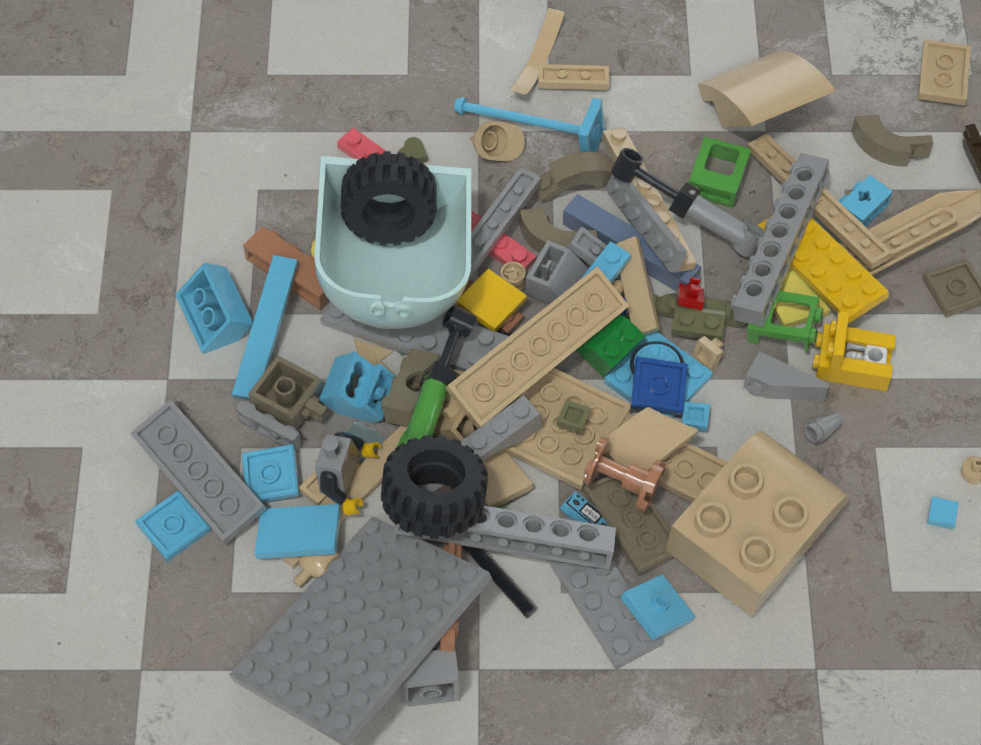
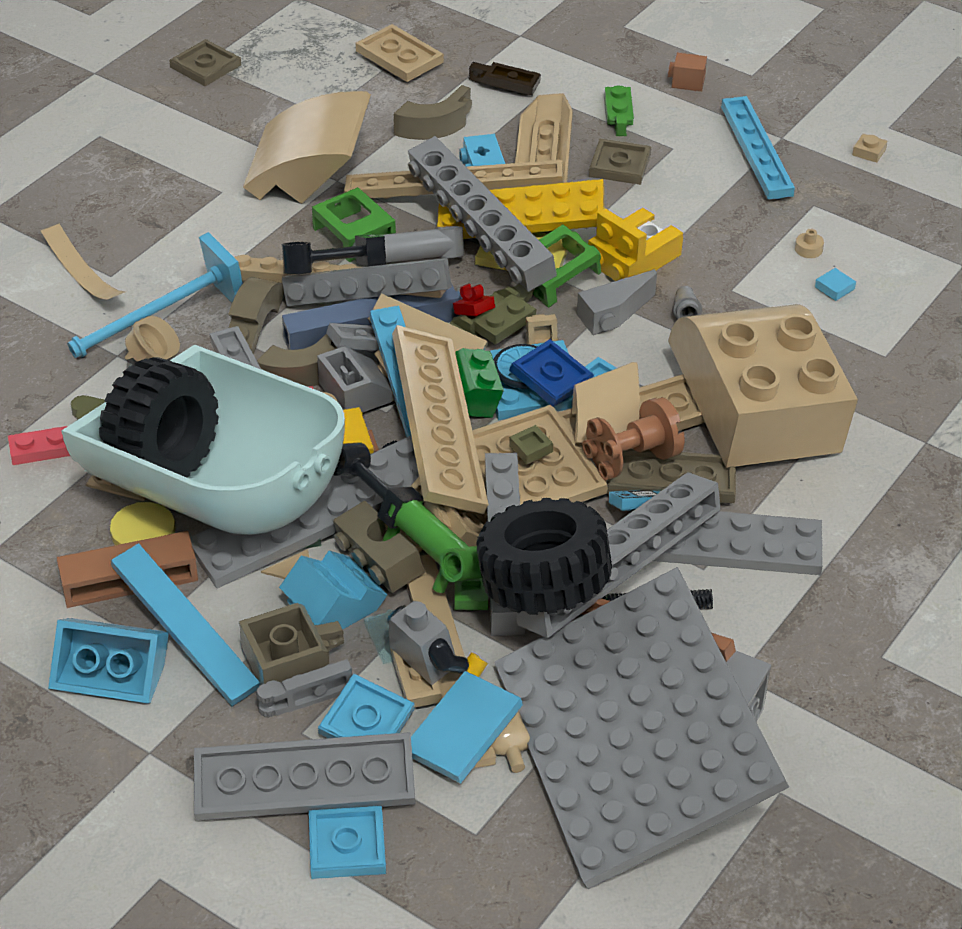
camera: 55 degrees left, 15 degrees down
(573, 77) = (137, 258): tan plate -> none
(657, 607) = (785, 503): medium azure plate -> none

